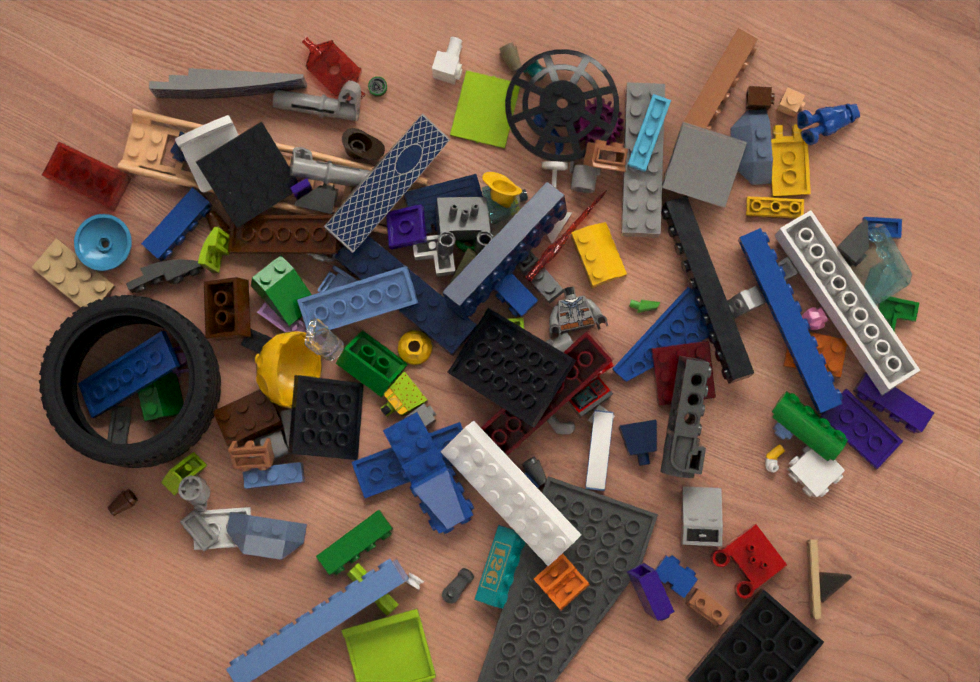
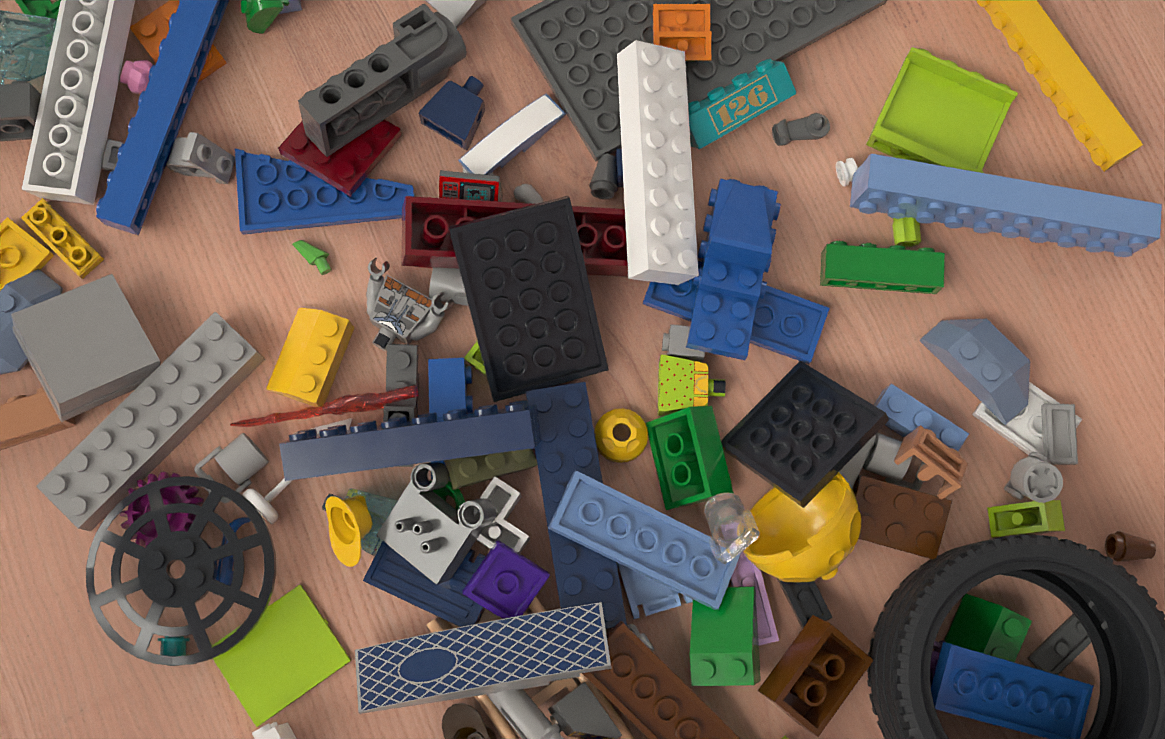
camera: 145 degrees left, 5 degrees down
(510, 56) = (186, 694): dark tan cone -> none
(592, 155) = (197, 471): nougat window -> none
(649, 133) = (110, 439): medium azure tile -> none
(707, 290) = (224, 204): black brick -> none

